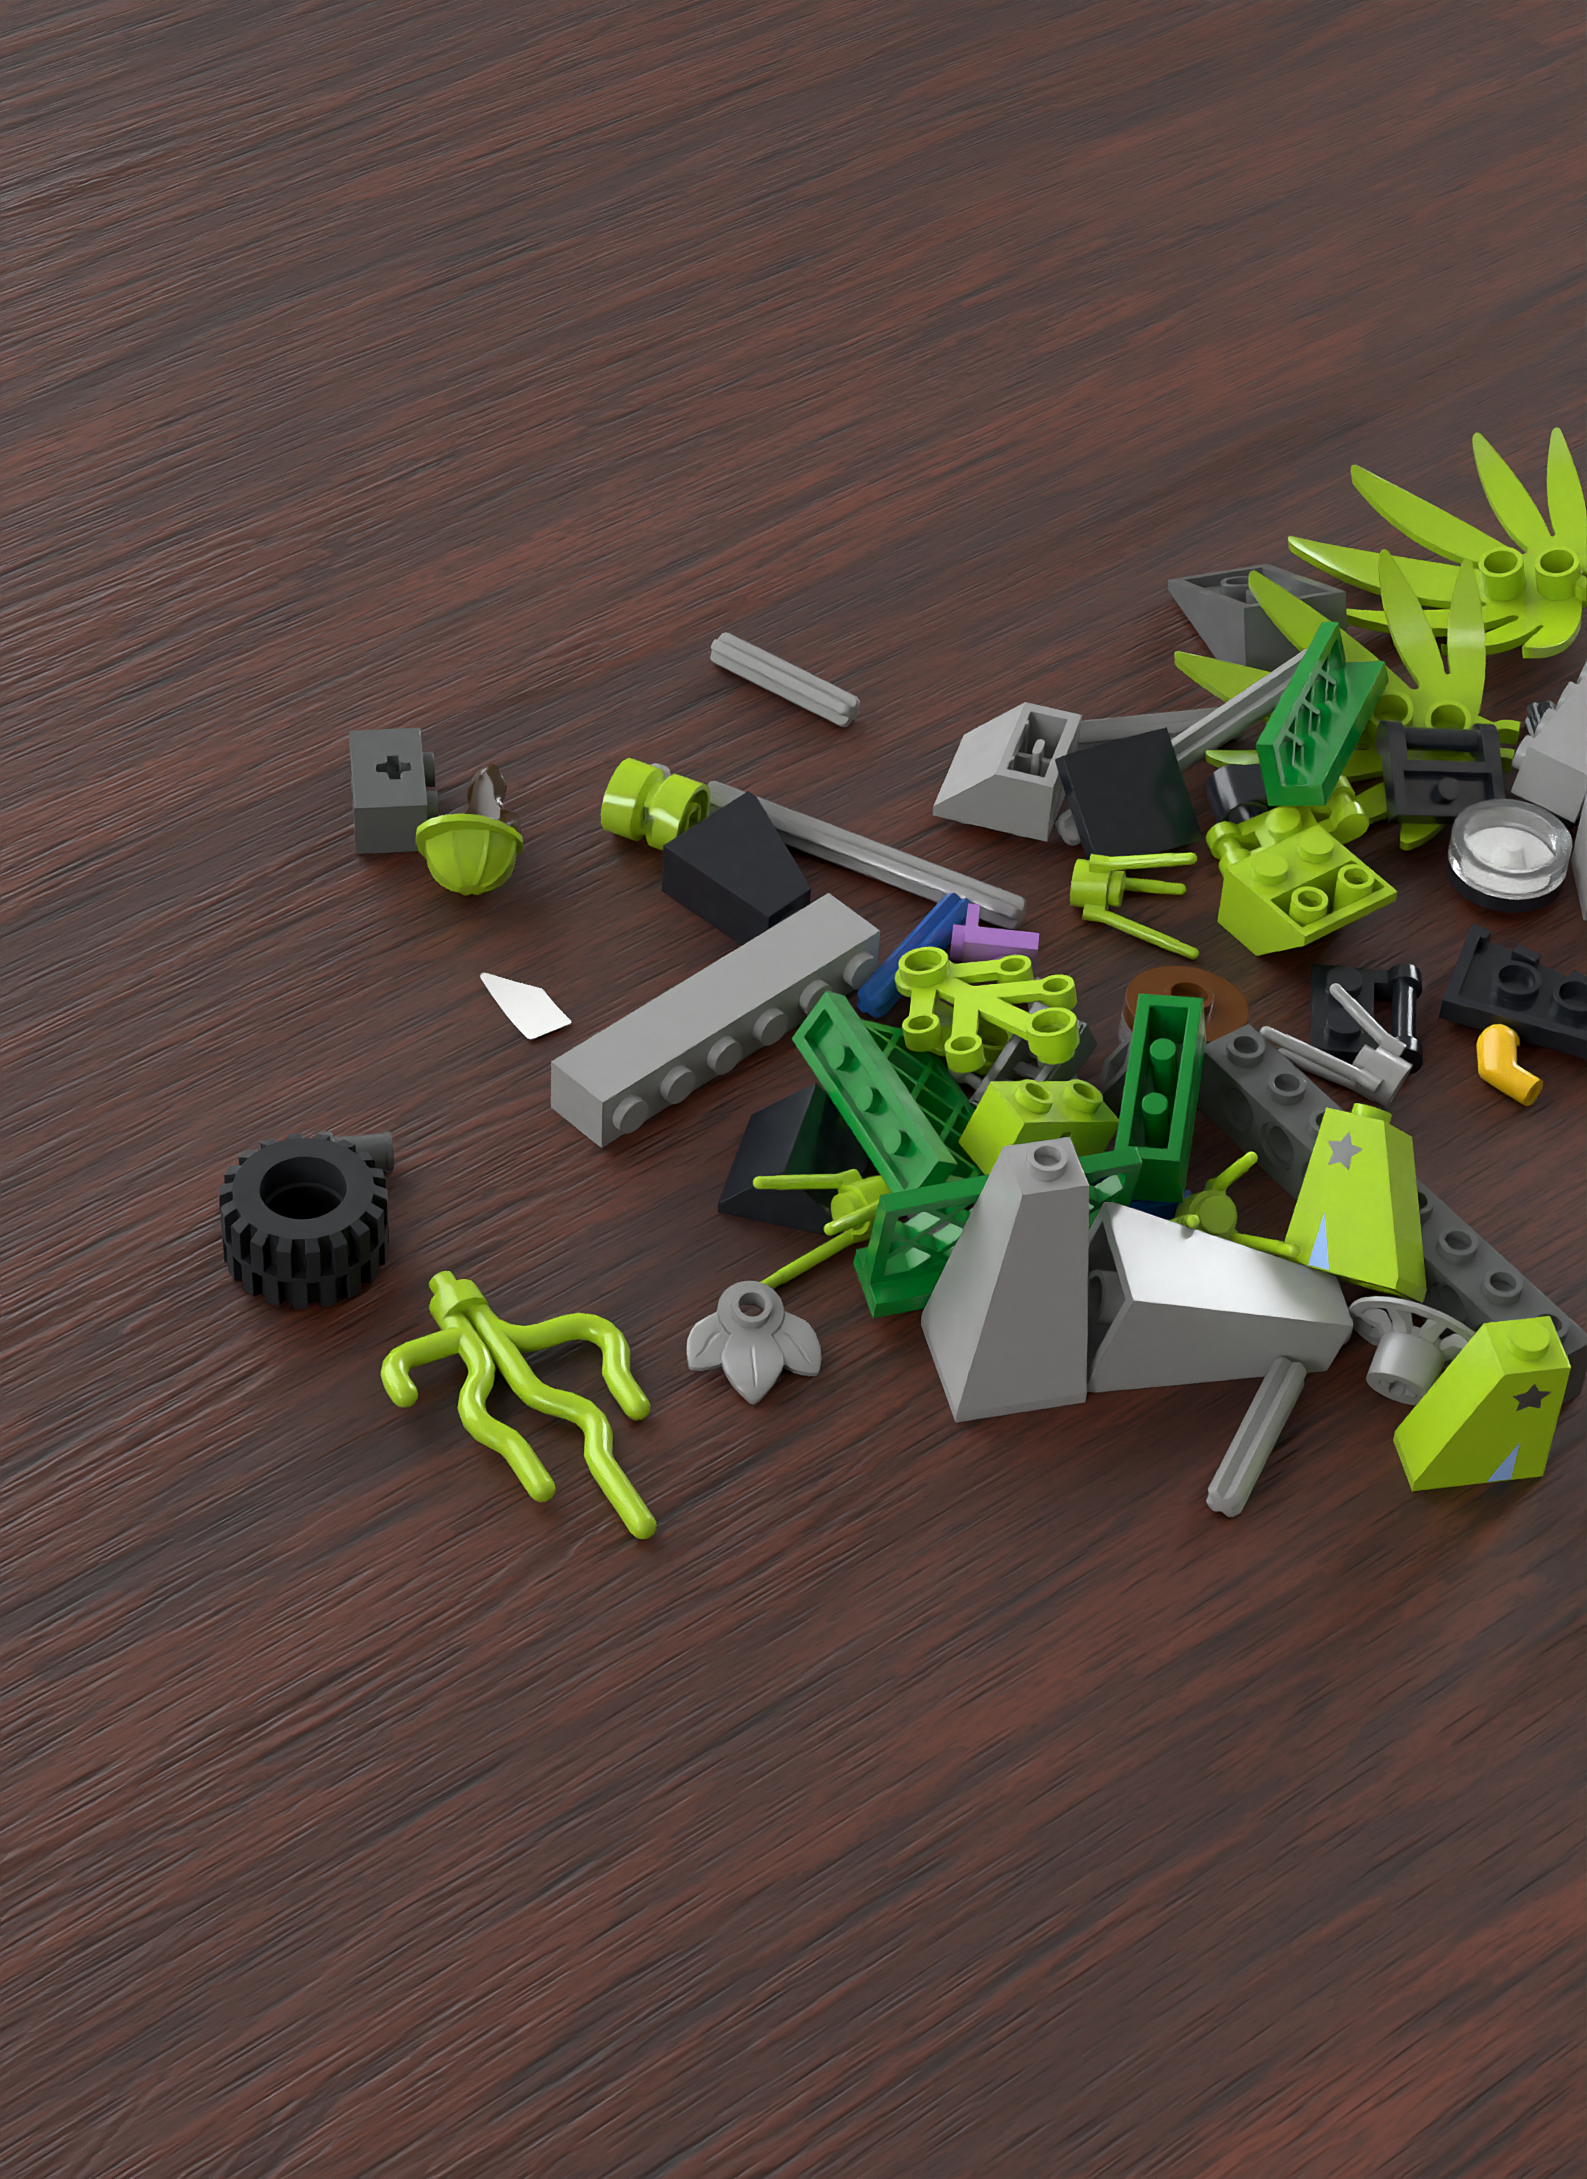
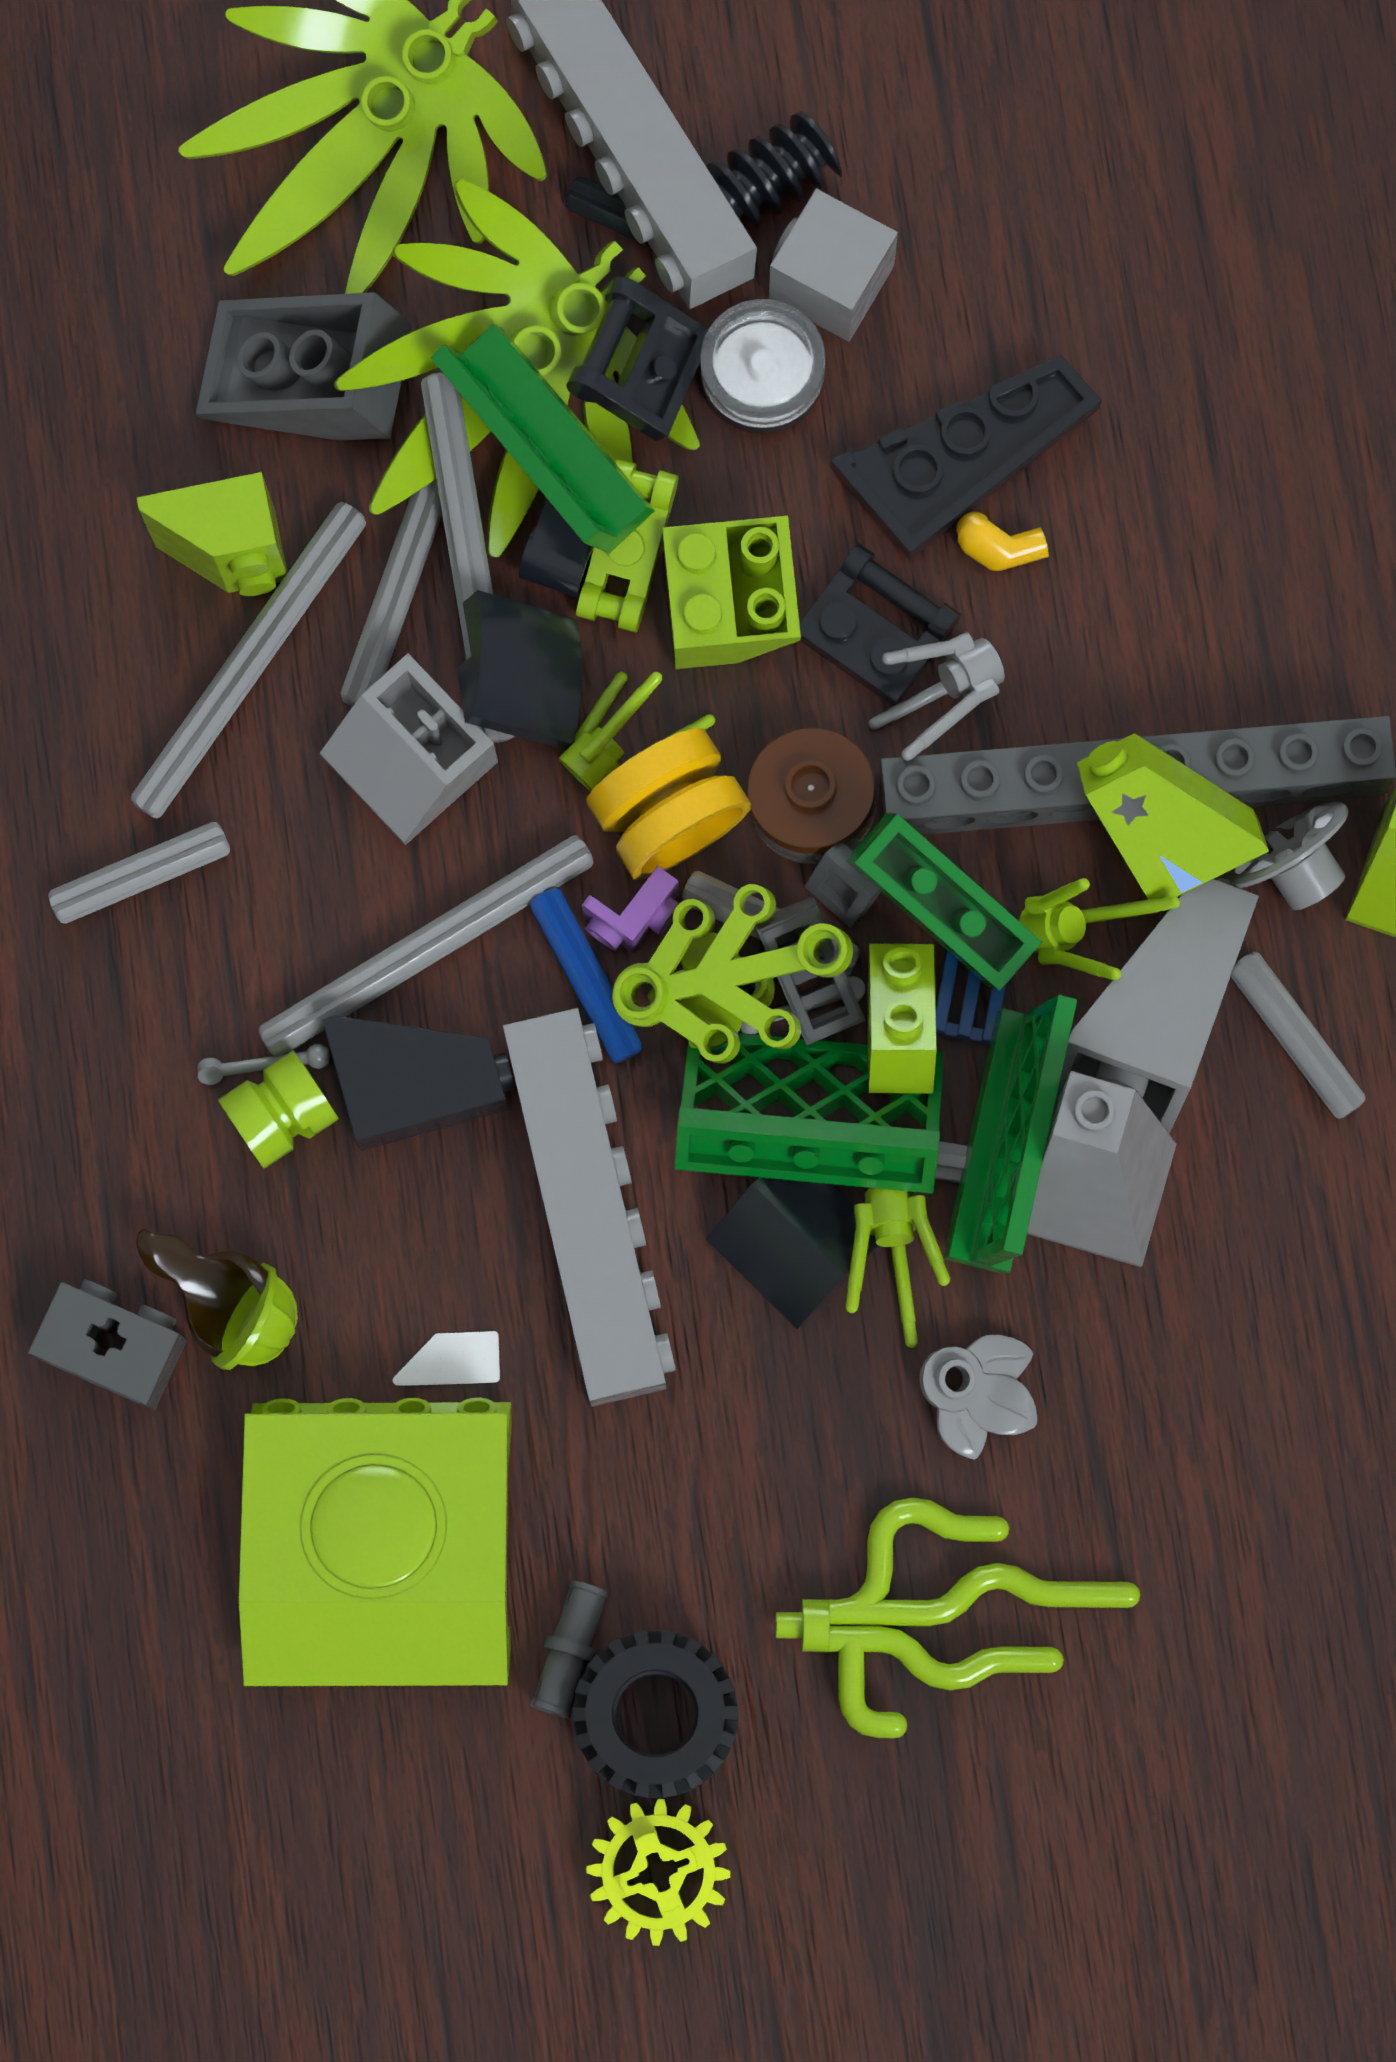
camera: 55 degrees left, 35 degrees up
(163, 1285) = (669, 1901): none -> neon yellow gear
(325, 973) = (375, 1543): none -> lime panel
(1004, 676) = (248, 660): none -> light grey axle
(1092, 602) = (220, 532): none -> lime slope
(1098, 915) = (668, 803): none -> yellow wheel

